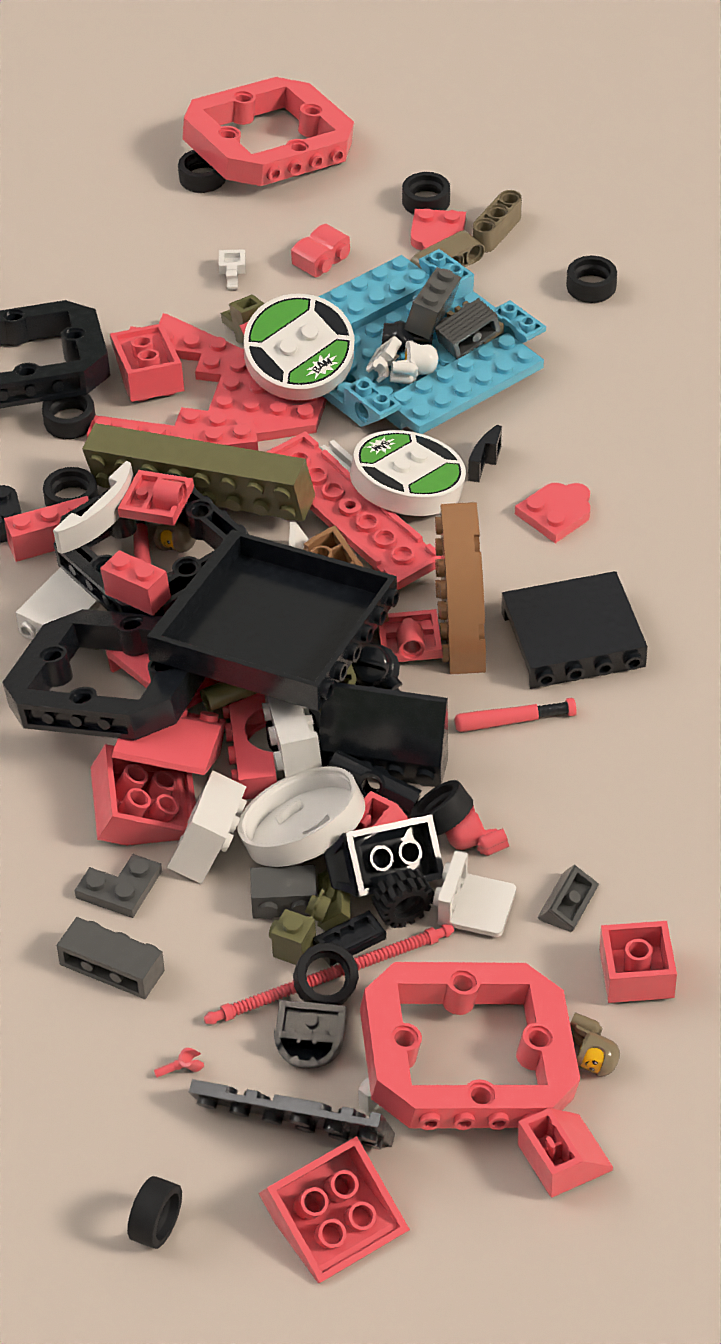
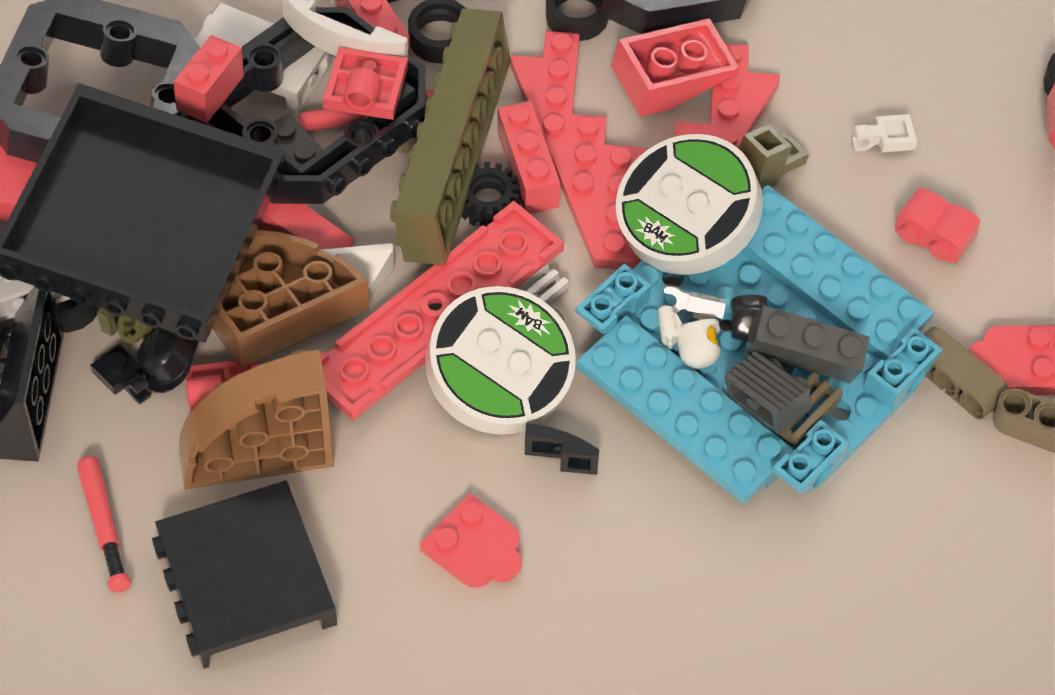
camera: 80 degrees right, 10 degrees up
(589, 291) = (957, 529): black tyre -> none

